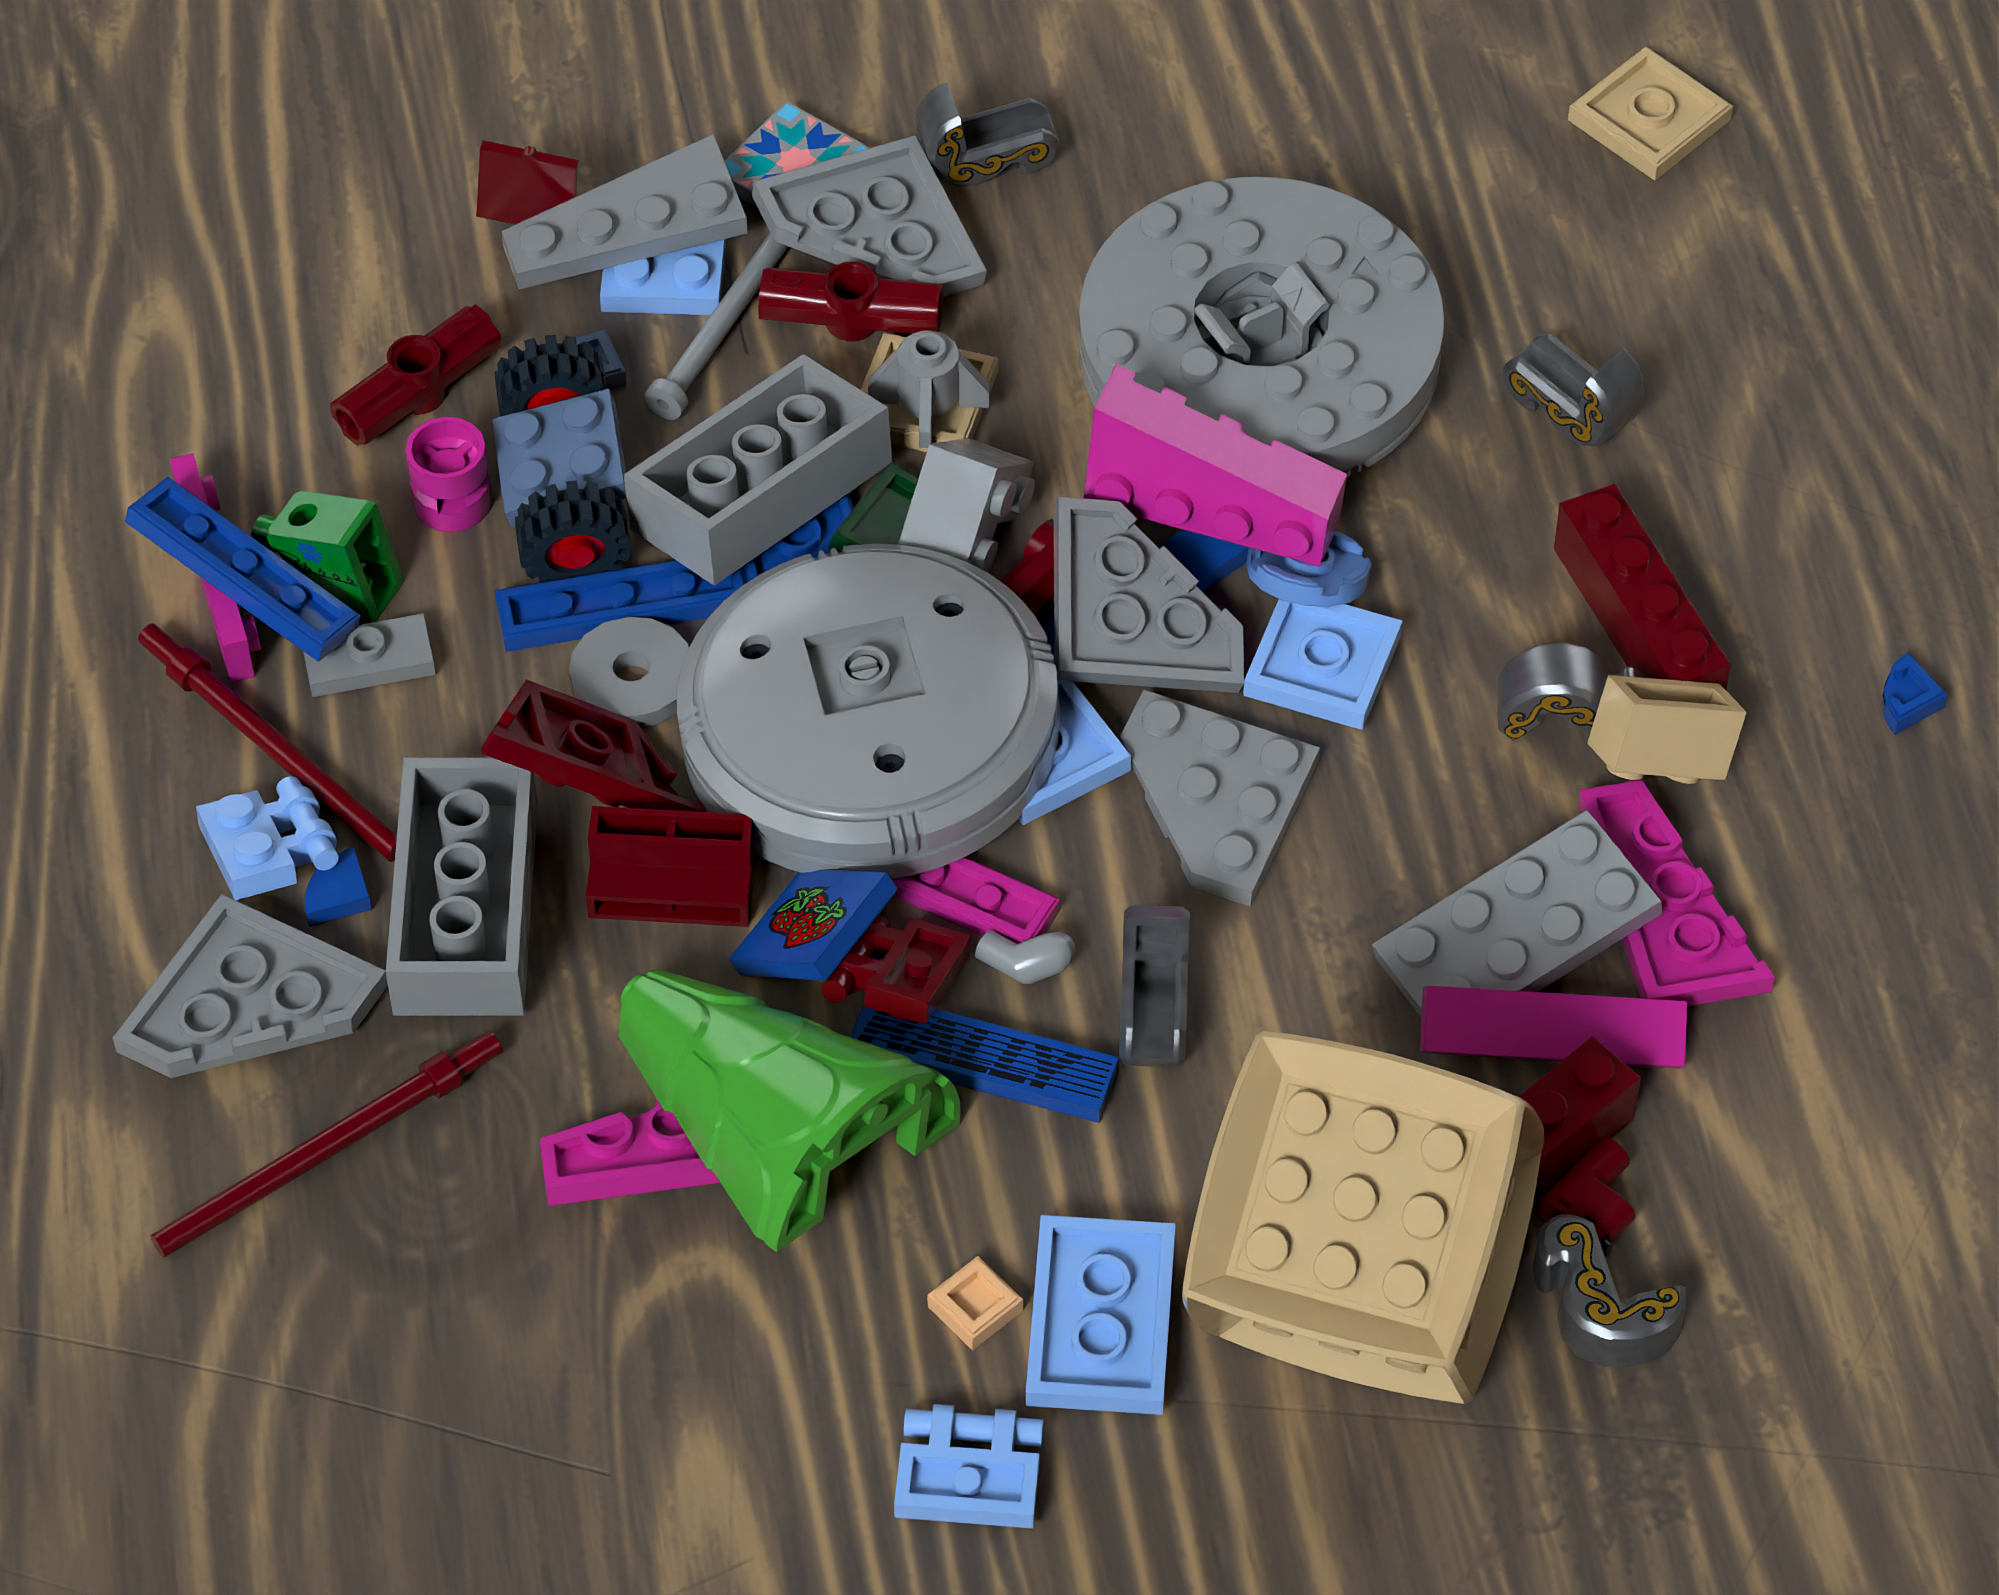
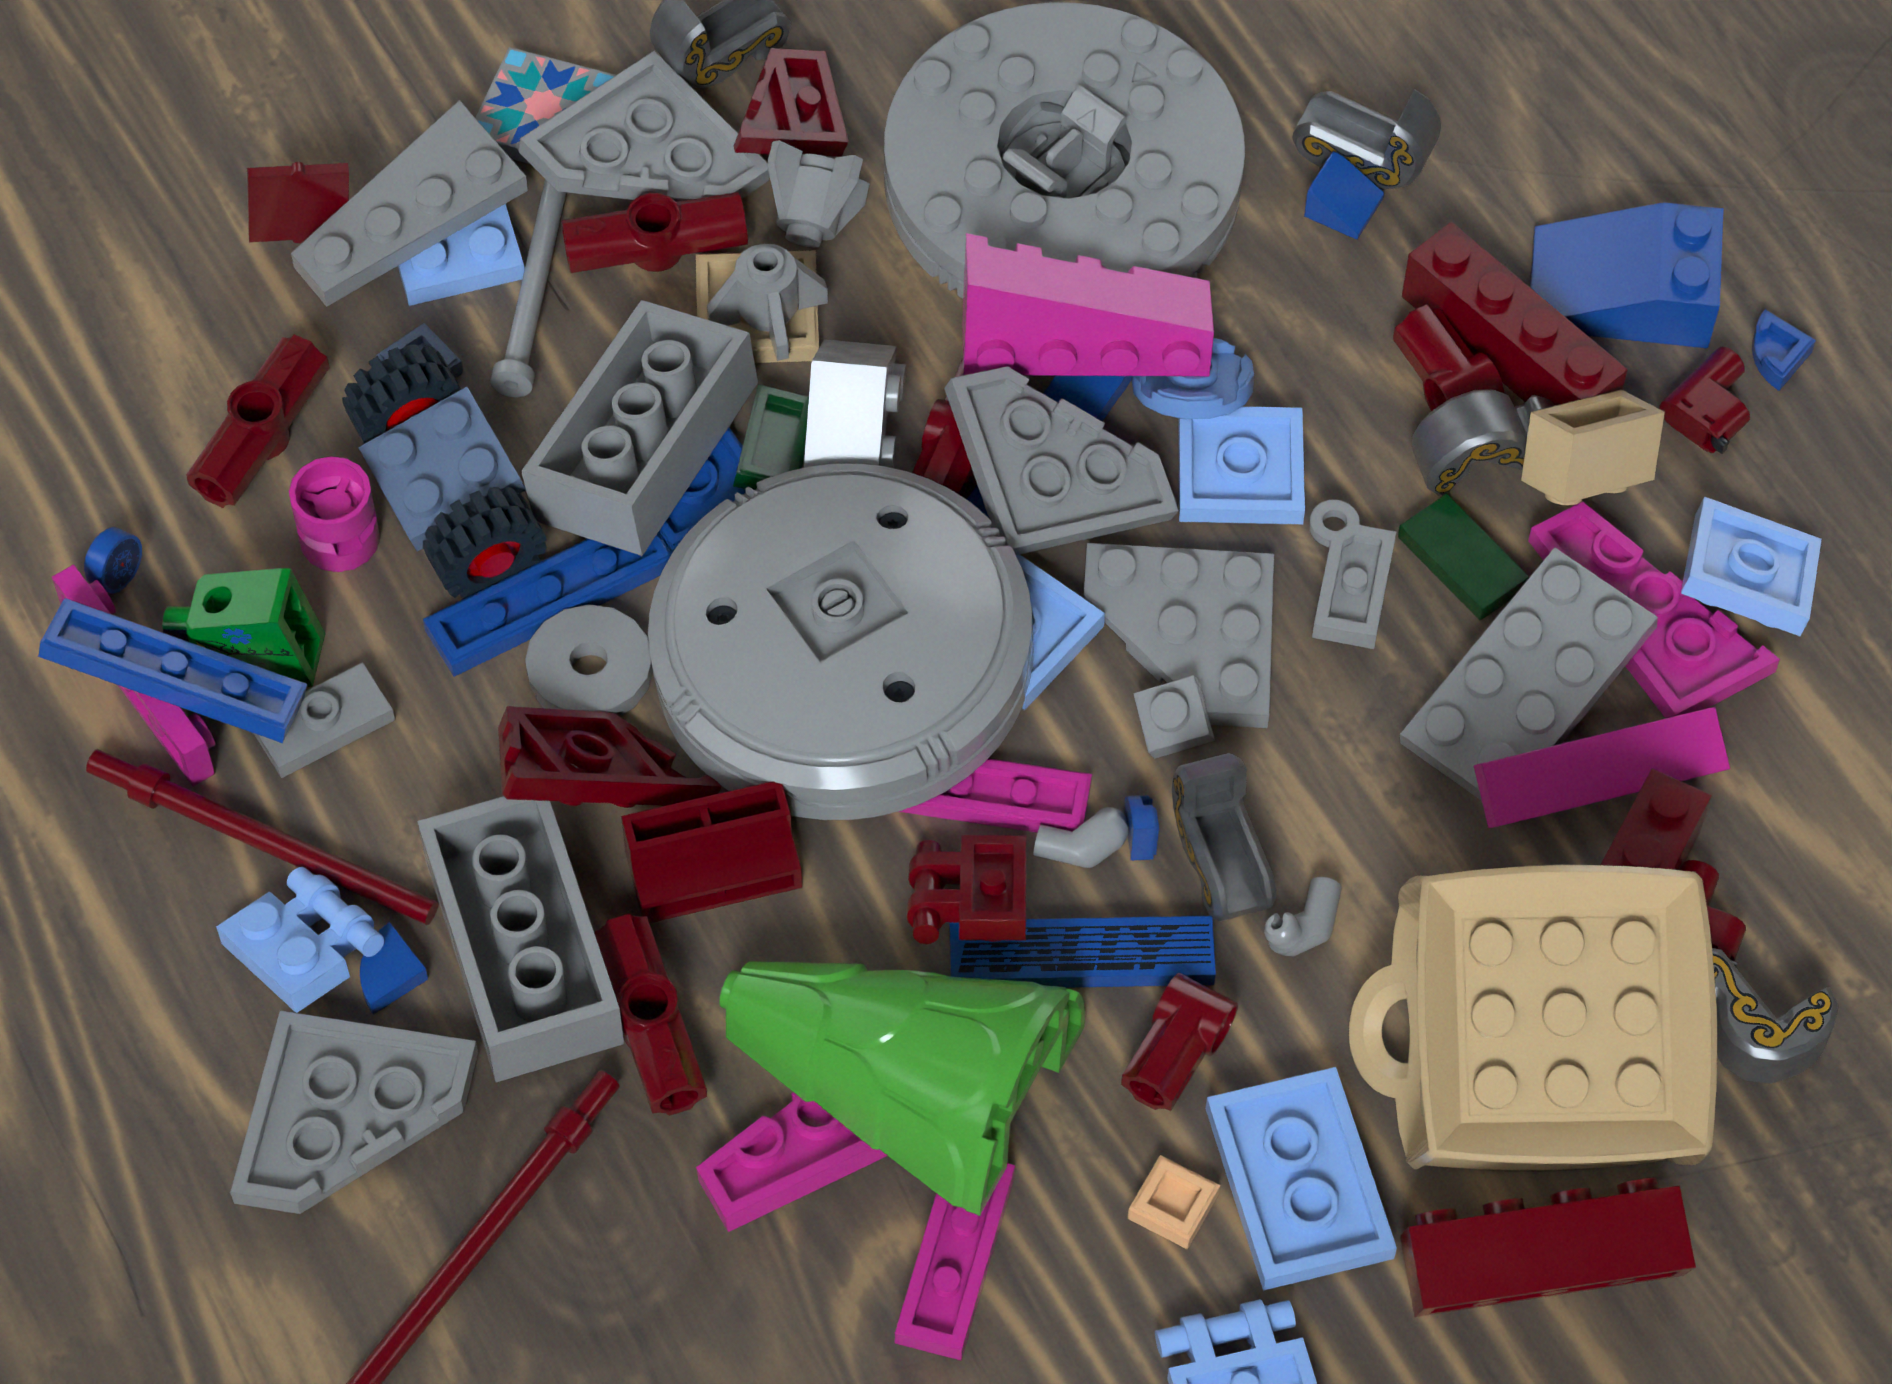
camera: 20 degrees left, 5 degrees up
(235, 462) = (113, 559): none -> blue tile
(553, 1021) = (657, 1045): none -> dark red piece
(740, 1299) = (951, 1274): none -> dark pink plate
(813, 924) = (875, 871): blue tile -> none
(1014, 306) = (814, 193): none -> light grey brick
(1028, 222) = (794, 105): none -> wing
(1051, 1147) = (1184, 1029): none -> dark red piece
(1086, 959) = (1142, 827): none -> blue tile
(1158, 868) = (1174, 717): none -> light grey plate
(1203, 1097) = (1308, 928): none -> light grey arm
(1305, 1443) = (1546, 1249): none -> dark red brick
(1387, 789) = (1353, 576): none -> light grey hinge
(1503, 797) = (1462, 556): none -> dark green tile
(1530, 439) = (1342, 197): none -> blue slope
(1562, 607) = (1443, 357): none -> dark red piece
(1782, 883) = (1751, 566): none -> light blue plate
(1788, 584) = (1634, 272): none -> blue slope
(1807, 724) = (1704, 407): none -> dark red piece

